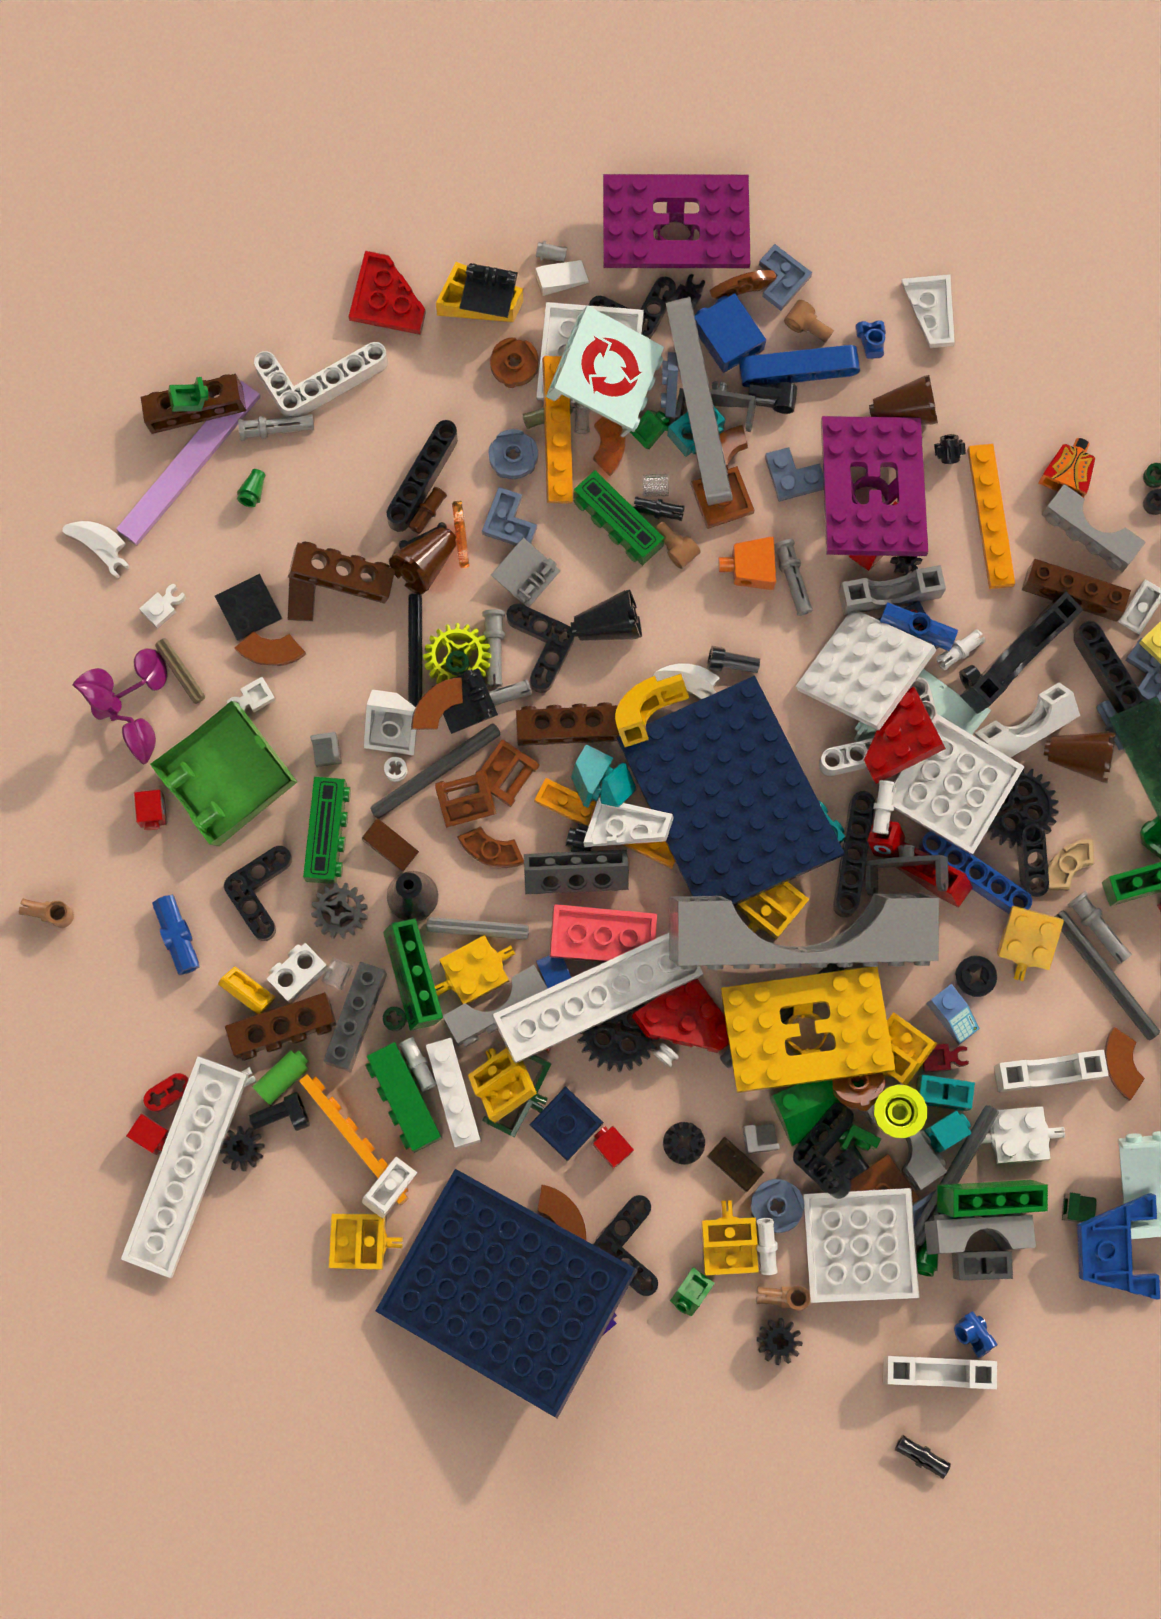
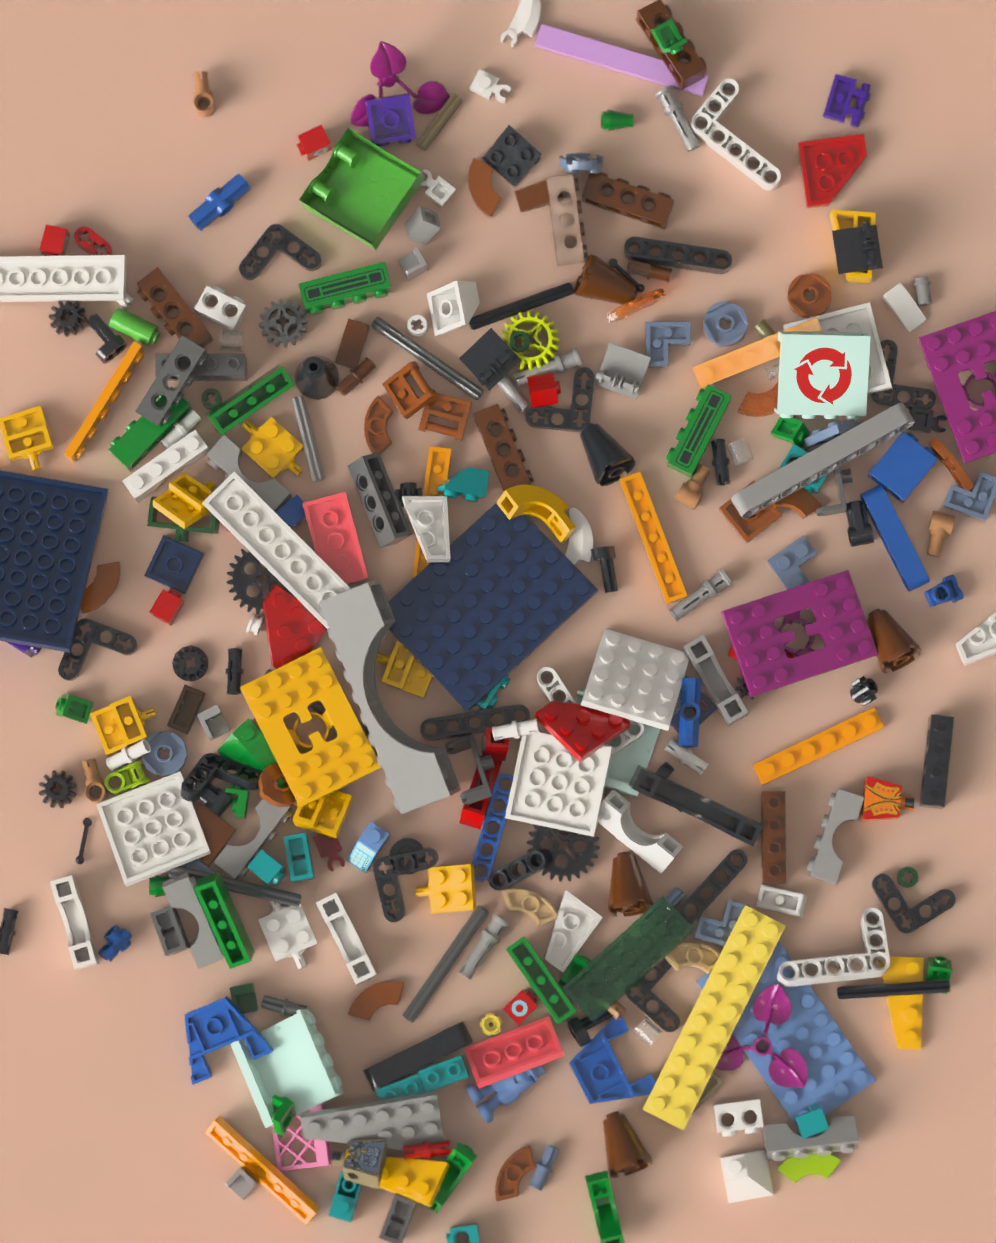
camera: 80 degrees right, 5 degrees up
(158, 716) = (390, 119): none -> dark purple plate
(246, 990) = (193, 274): yellow plate -> none
(283, 538) = (581, 161): none -> sand blue plate
(288, 725) = (422, 225): none -> light grey panel
(317, 261) = (840, 97): none -> dark purple plate
(342, 518) = (656, 217): none -> reddish brown brick
(382, 1087) = (159, 387): none -> dark grey brick
(389, 1187) = (73, 441): white slope -> none
(428, 853) = (356, 376): none -> reddish brown axle
(435, 702) = (478, 335): dark orange tile -> none
(517, 659) = (543, 390): none -> red brick
(617, 786) = (461, 508): teal slope -> none
(710, 1096) = (234, 671): none -> black pin
(715, 603) = (653, 538): none -> light orange plate
(752, 563) = (699, 556): orange torso -> none
(792, 1256) = (128, 778): none -> lime piece
(826, 1321) = (87, 822): none -> black hinge
(900, 1111) = (266, 821): neon yellow piece -> none
(994, 999) = (391, 877): none -> black beam
(1047, 404) = (936, 761): none -> black brick
(1102, 1166) = (281, 1006): none -> dark grey axle
(1111, 830) = (570, 931): none -> white wing

